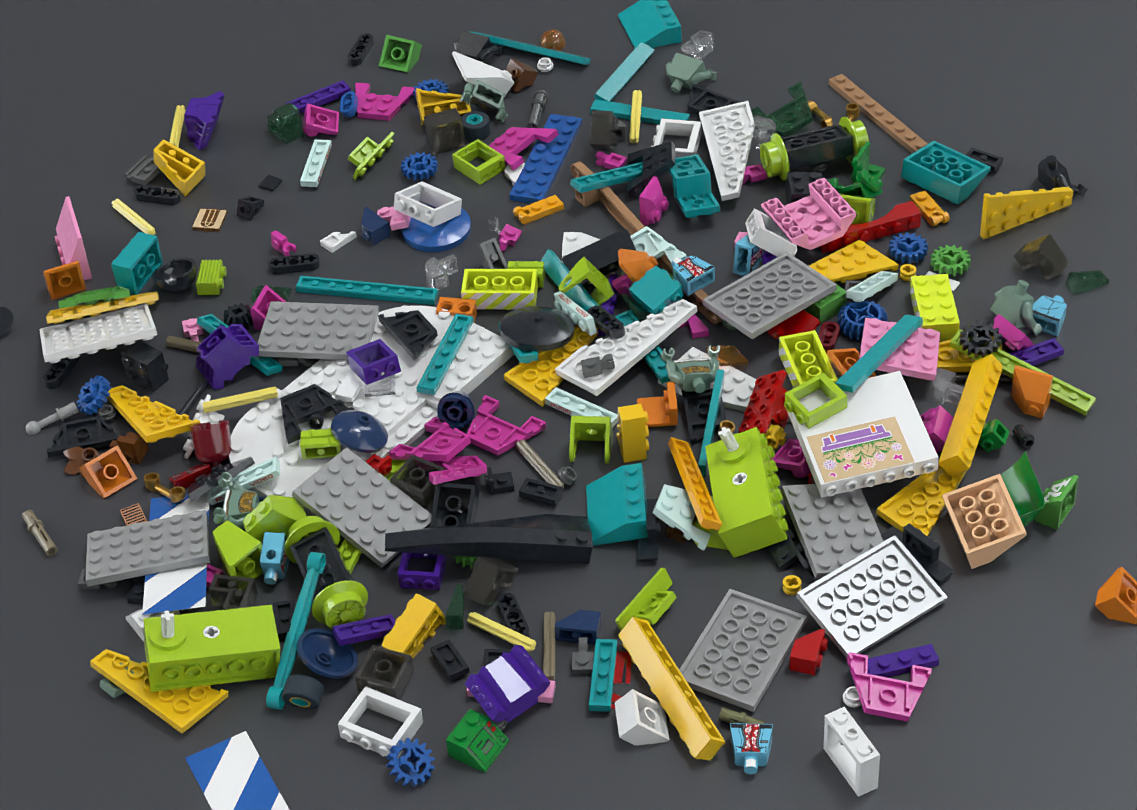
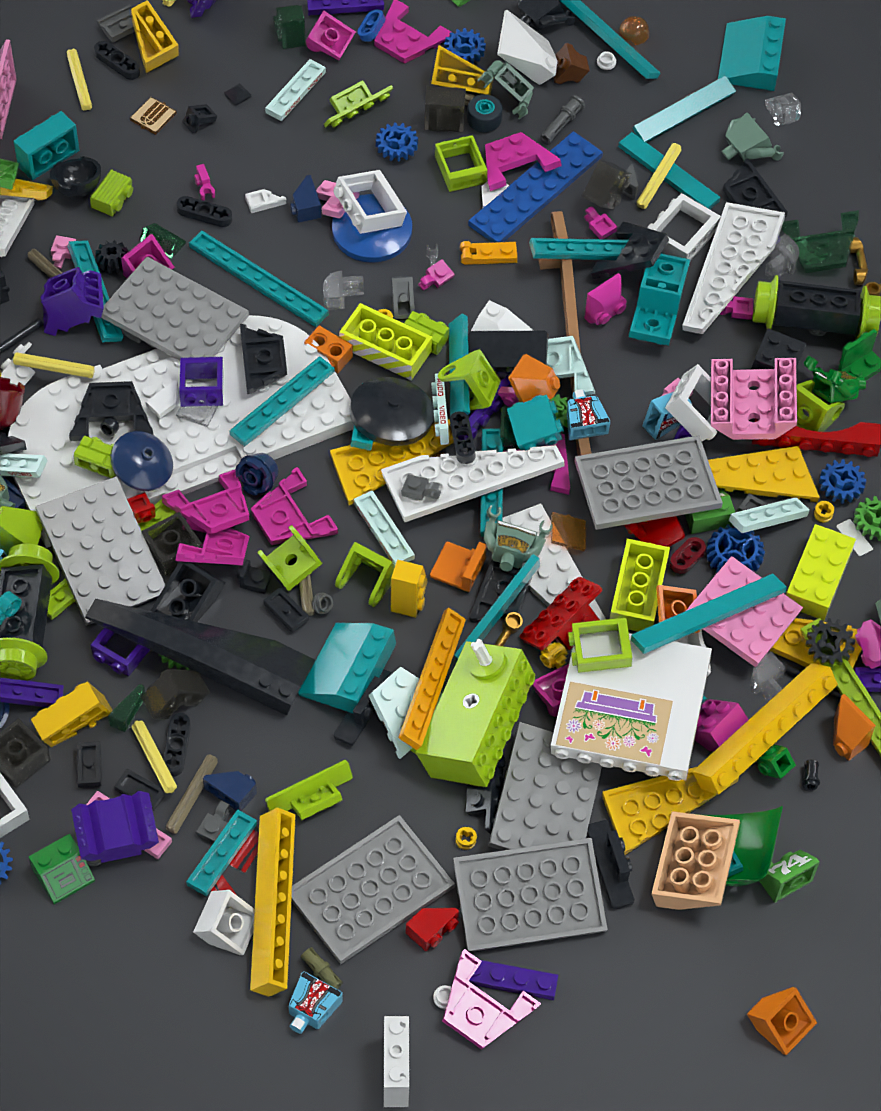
camera: 20 degrees right, 15 degrees up
(523, 443) = (292, 548): none -> lime hose

